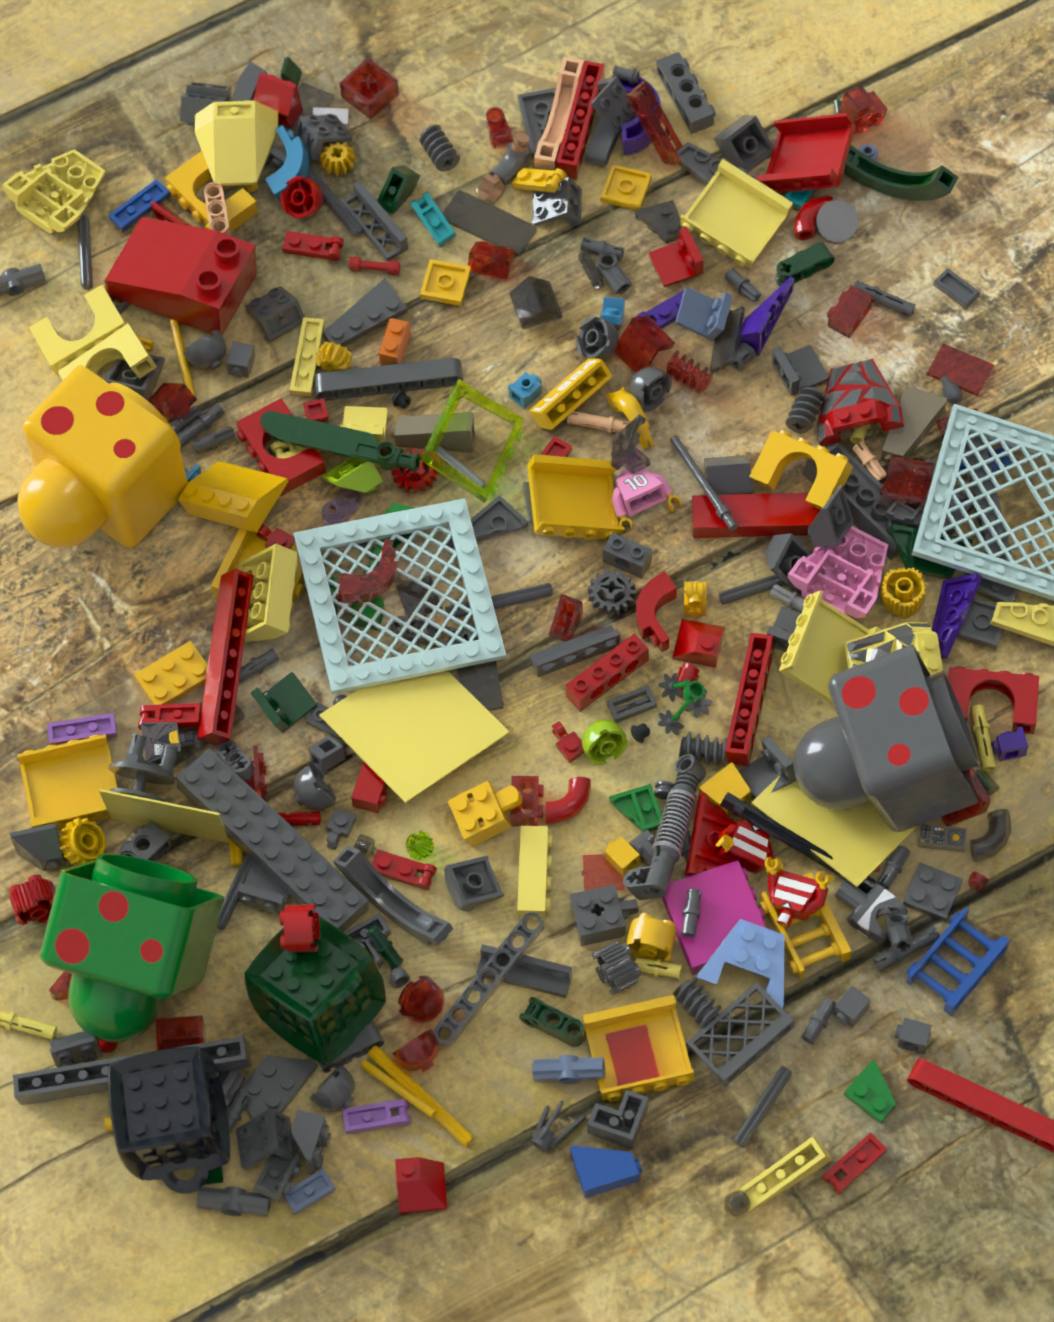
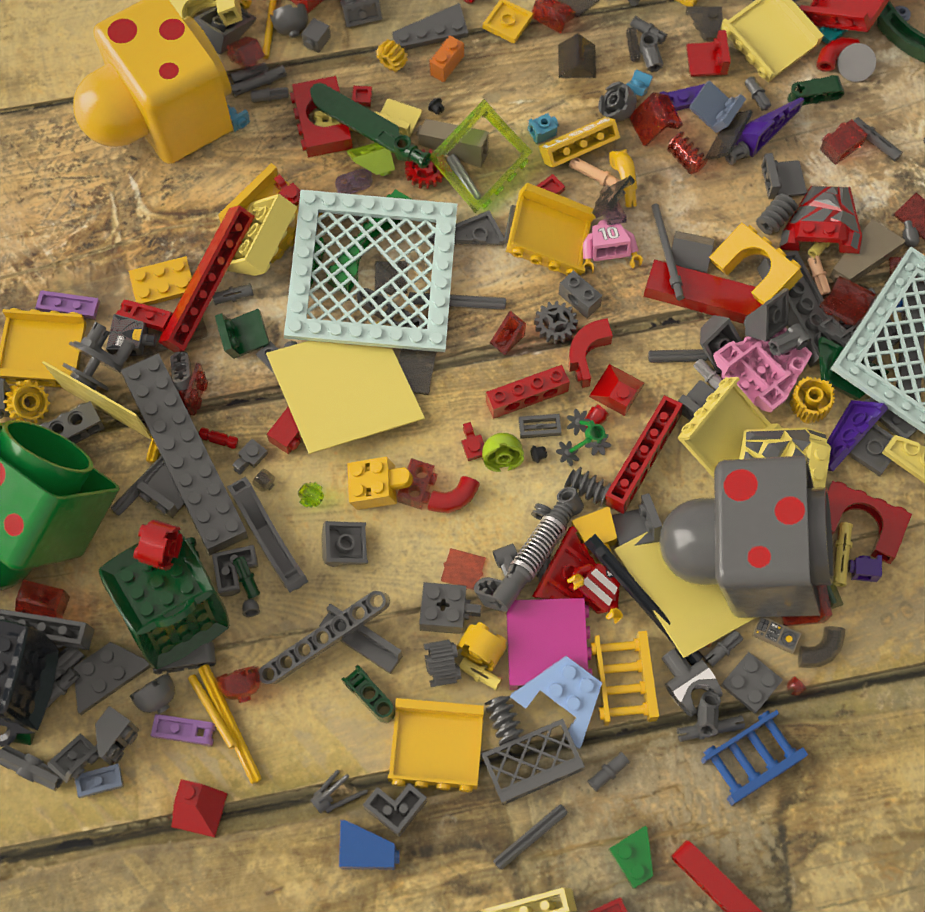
camera: 15 degrees right, 5 degrees up
(232, 495) = (265, 144): yellow slope -> none
(265, 1136) = (77, 719): dark grey bracket -> none
(305, 361) = (367, 54): light yellow plate -> none
(312, 789) = (237, 416): dark grey cylinder -> none
(327, 754) = (262, 388): dark grey brick -> none
(367, 587) = (353, 253): clear red arch -> none
(388, 379) = (430, 85): dark grey beam -> none
(403, 869) = (289, 511): red plate -> none
(421, 1000) = (259, 637): clear red cylinder -> none
(533, 871) = (400, 551): light yellow brick -> none
(568, 1069) = (367, 744): sand blue piece -> none
(575, 650) = (507, 363): dark grey fence -> none
(622, 856) = (483, 561): yellow brick -> none
(632, 1055) = (428, 749): clear red piece -> none
(639, 807) = (514, 521): green wing -> none
(649, 387) = (648, 156): dark grey cylinder -> none
(691, 913) = (525, 635): dark grey pin -> none
(695, 598) = (626, 349): yellow brick -> none
(795, 894) = (624, 648): red torso -> none
(851, 1007) = (642, 769): dark grey brick -> none
(863, 535) = (793, 338): none -> dark grey piece
(913, 1035) = (690, 815): dark grey brick -> none

